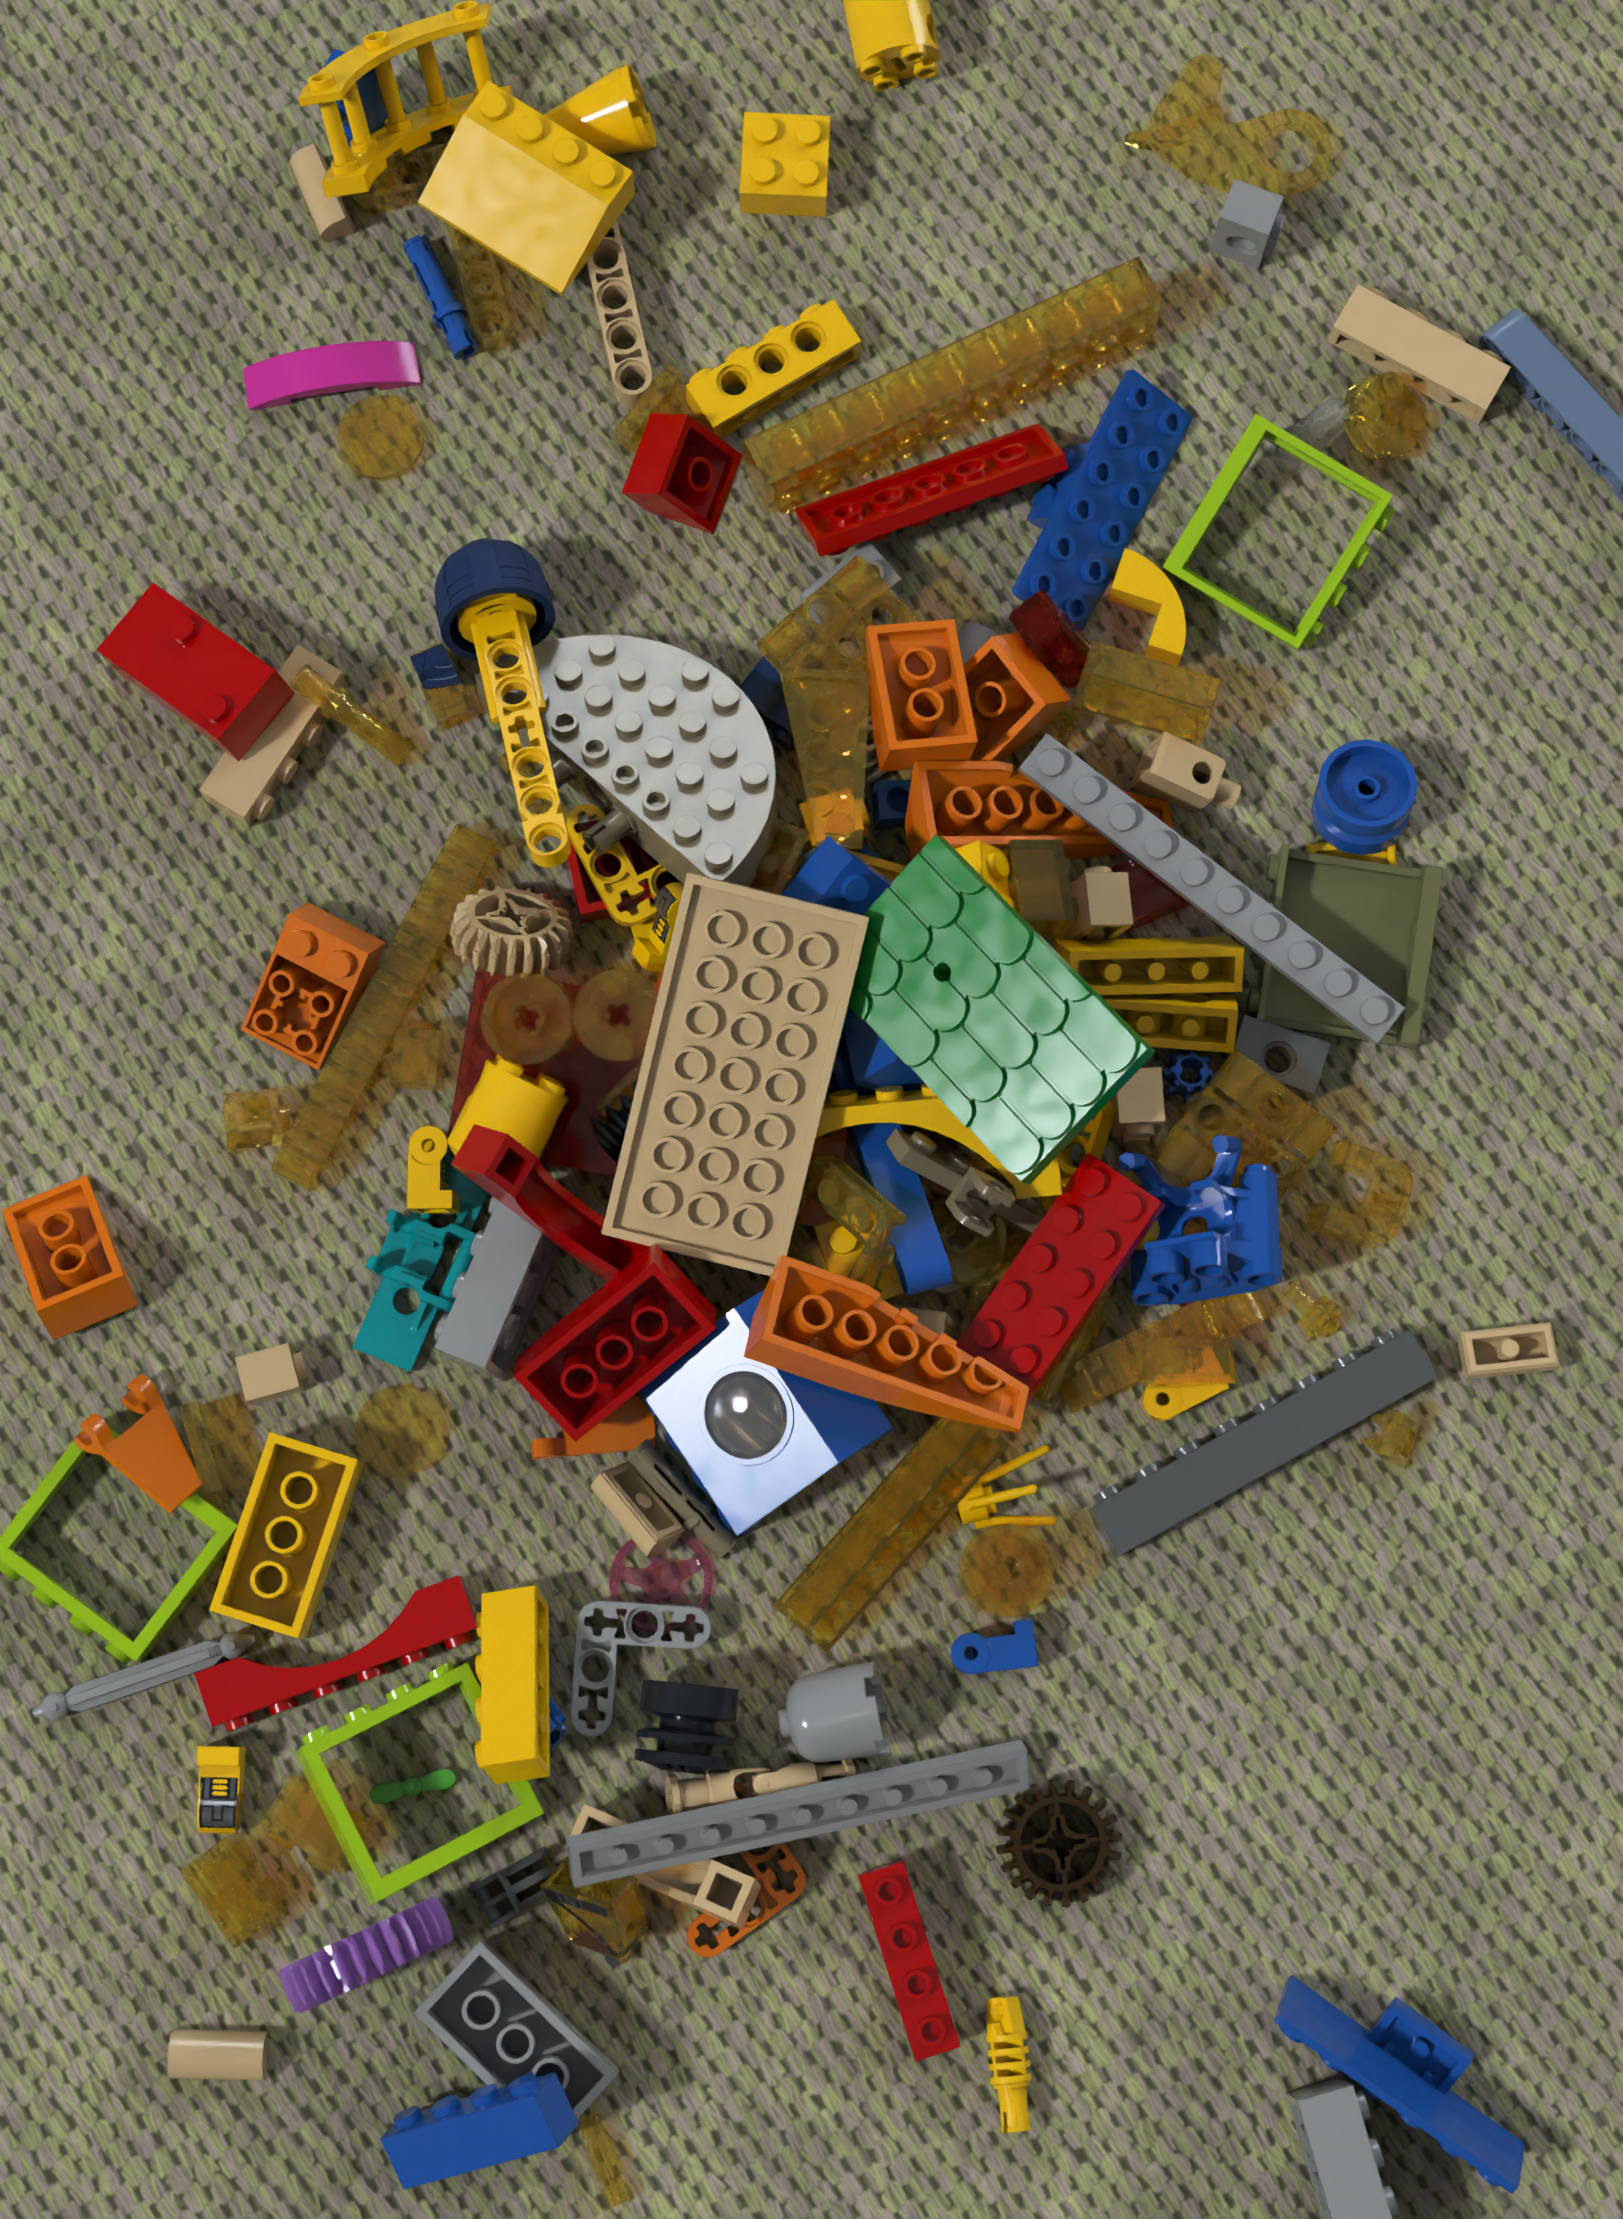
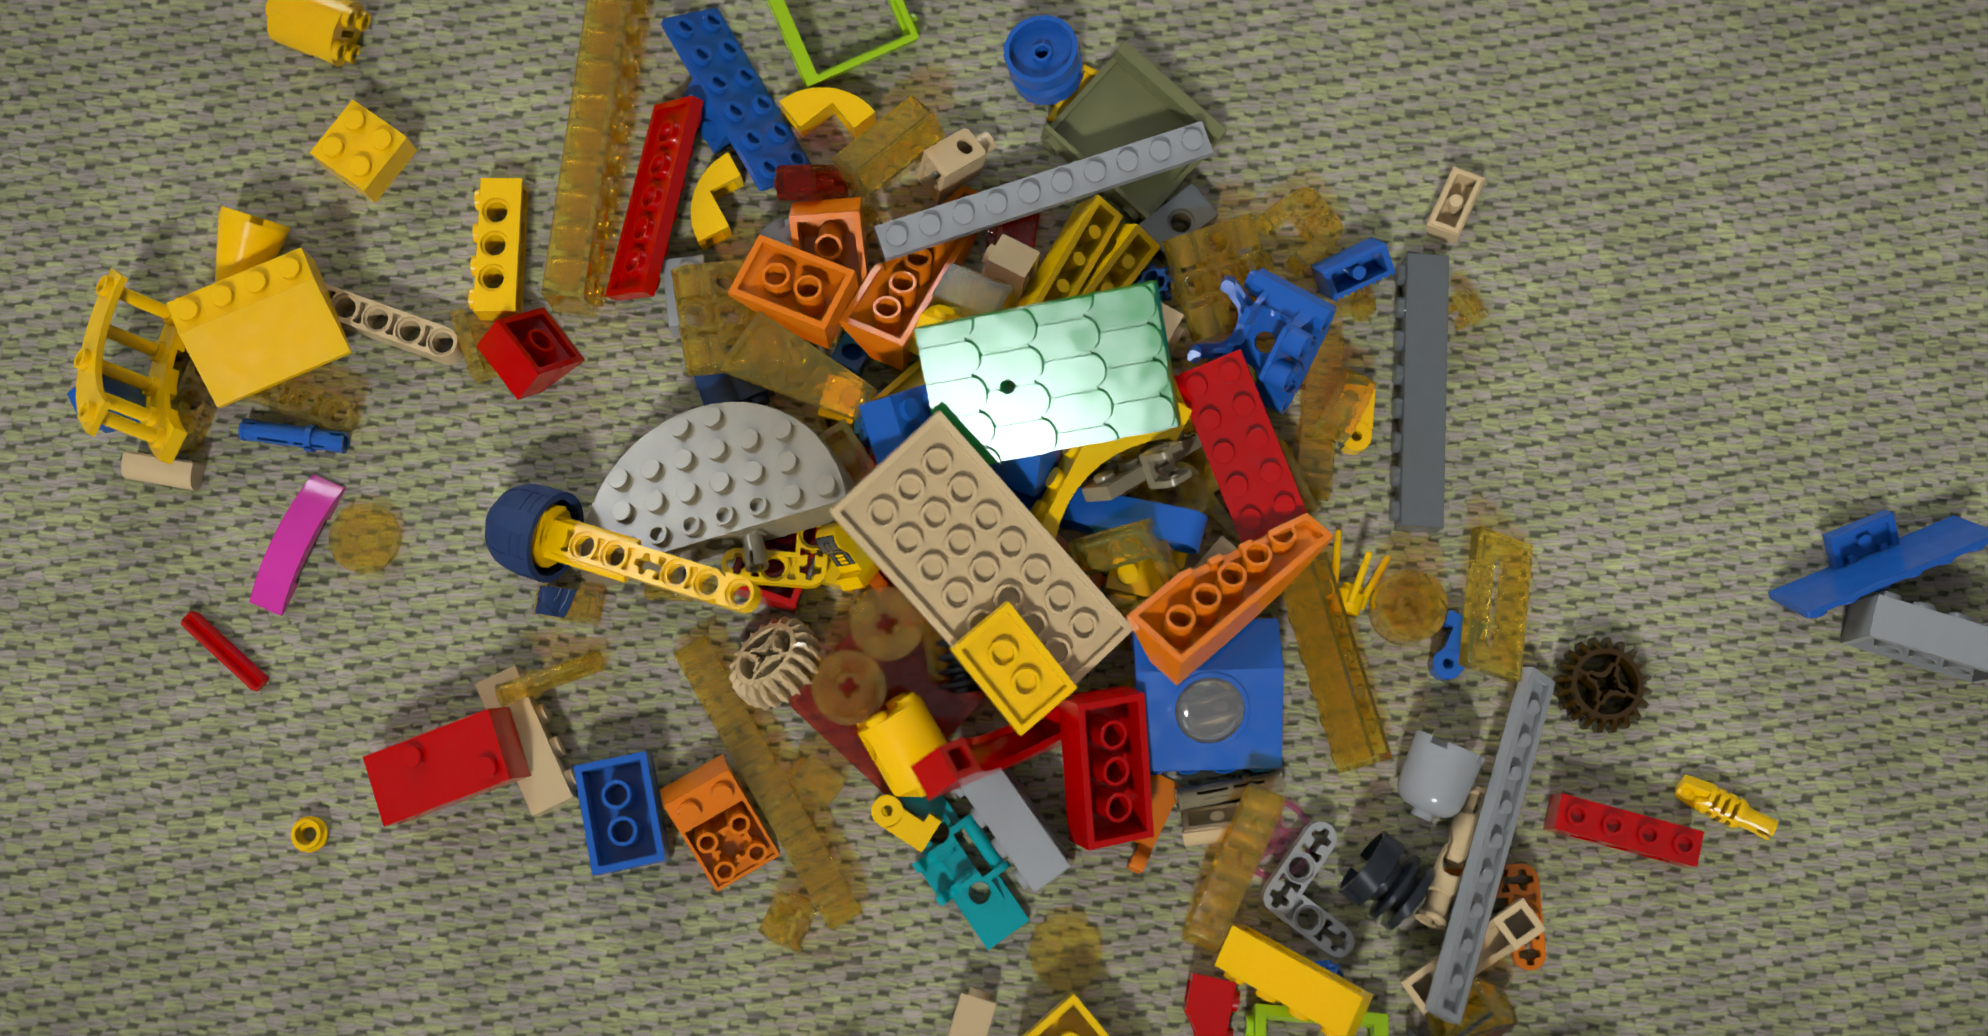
camera: 60 degrees left, 0 degrees up
(39, 573) = (298, 834): none -> yellow plate
(177, 378) = (224, 651): none -> red axle
(258, 879) = (622, 813): none -> blue brick
(595, 1547) = (1233, 867): none -> clear yellow beam
(651, 1172) = (1013, 668): none -> yellow plate
(949, 554) = (706, 217): none -> yellow brick
(1026, 1712) = (1515, 561): none -> clear yellow piece
(1351, 1280) = (1352, 268): none -> blue brick

